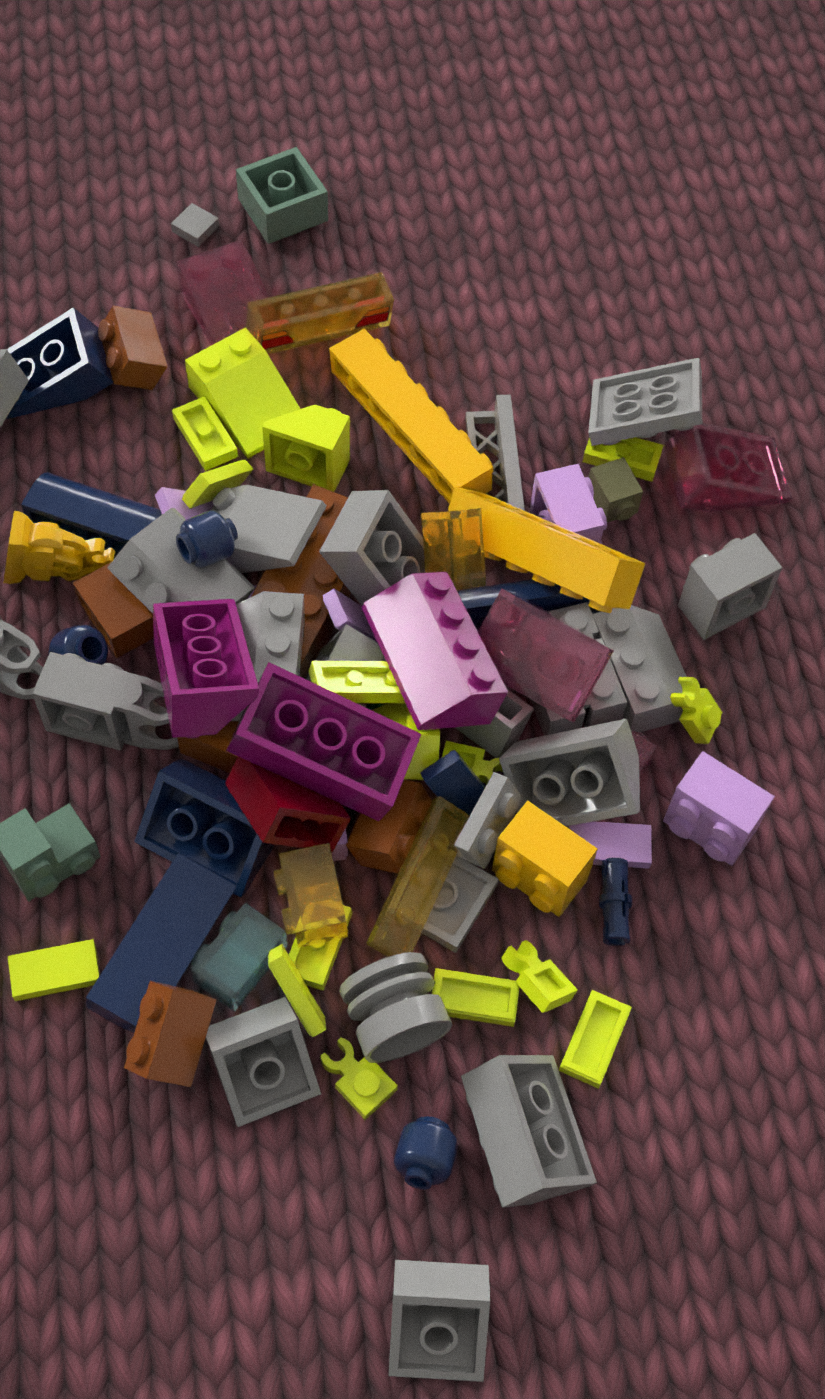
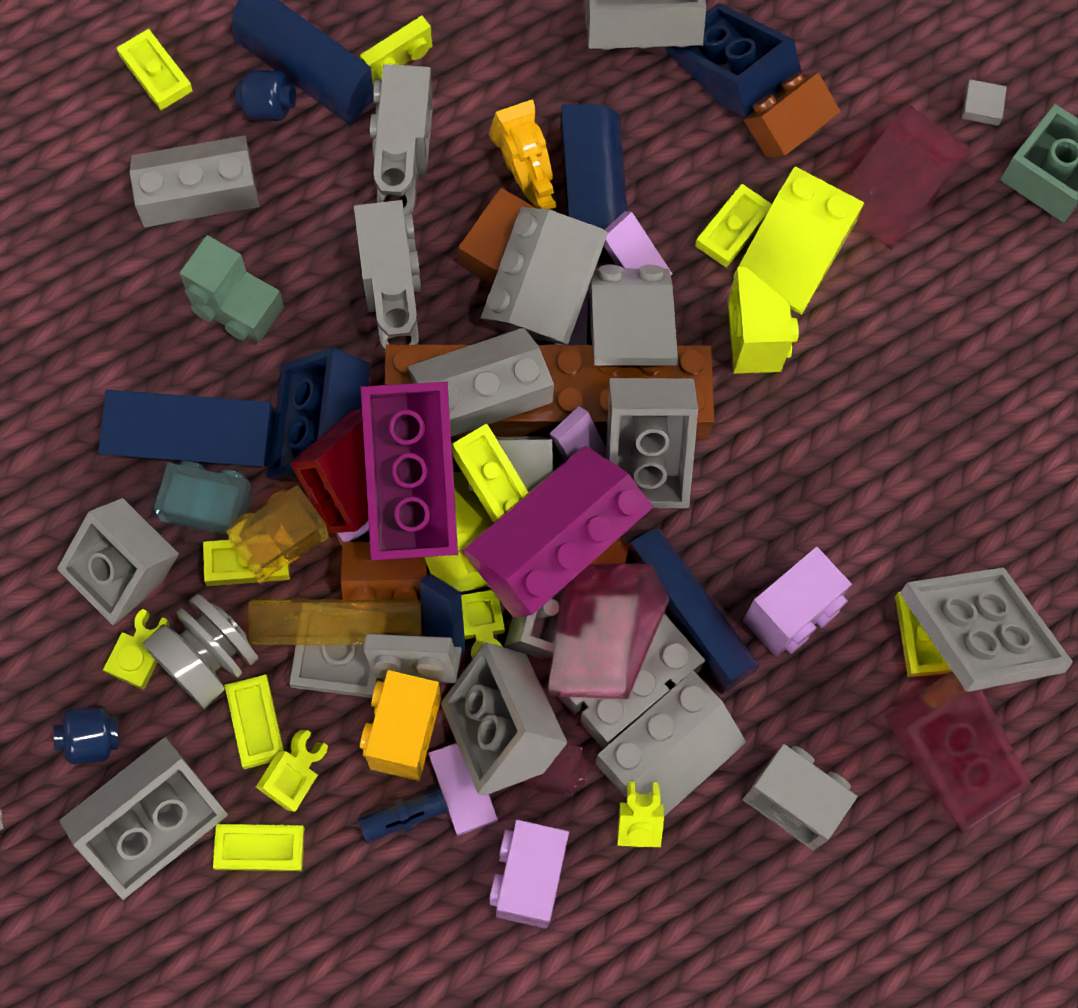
camera: 65 degrees right, 10 degrees up
(53, 970) = (135, 355): neon yellow tile -> none
(82, 641) = (437, 227): dark blue head -> none
(169, 1034) = (100, 471): dark orange brick -> none
(202, 665) = (435, 326): magenta slope -> none
(206, 539) = (581, 275): dark blue head -> none
(211, 482) = (670, 258): neon yellow tile -> none
(296, 991) = (184, 559): neon yellow tile -> none
(320, 313) = (925, 264): clear yellow brick -> none
(409, 416) = (848, 404): yellow brick -> none
(455, 546) = (698, 505): clear yellow brick -> none
(505, 449) = (840, 521): light grey fence -> none
(553, 553) = (728, 589): yellow brick -> none
(616, 489) = (868, 641): olive brick -> none

